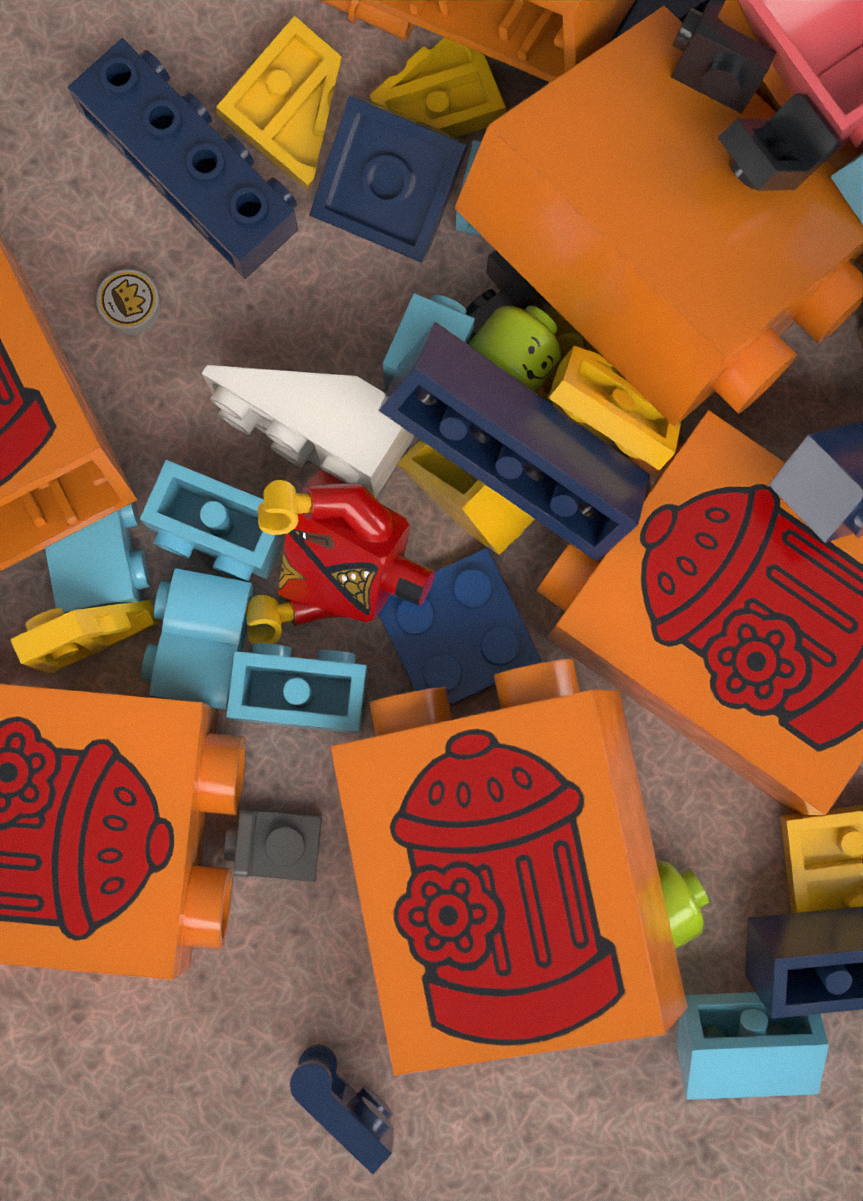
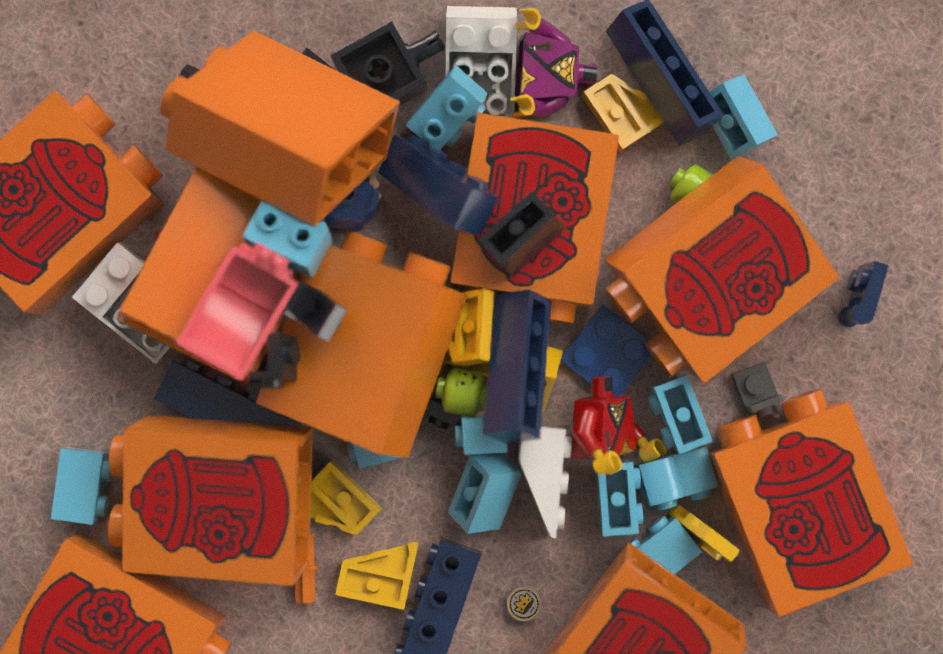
camera: 110 degrees left, 5 degrees up
(333, 311) = (484, 492): none -> medium azure brick
(388, 178) = (397, 502): dark blue tile -> none
(740, 554) = (522, 233): none -> black brick

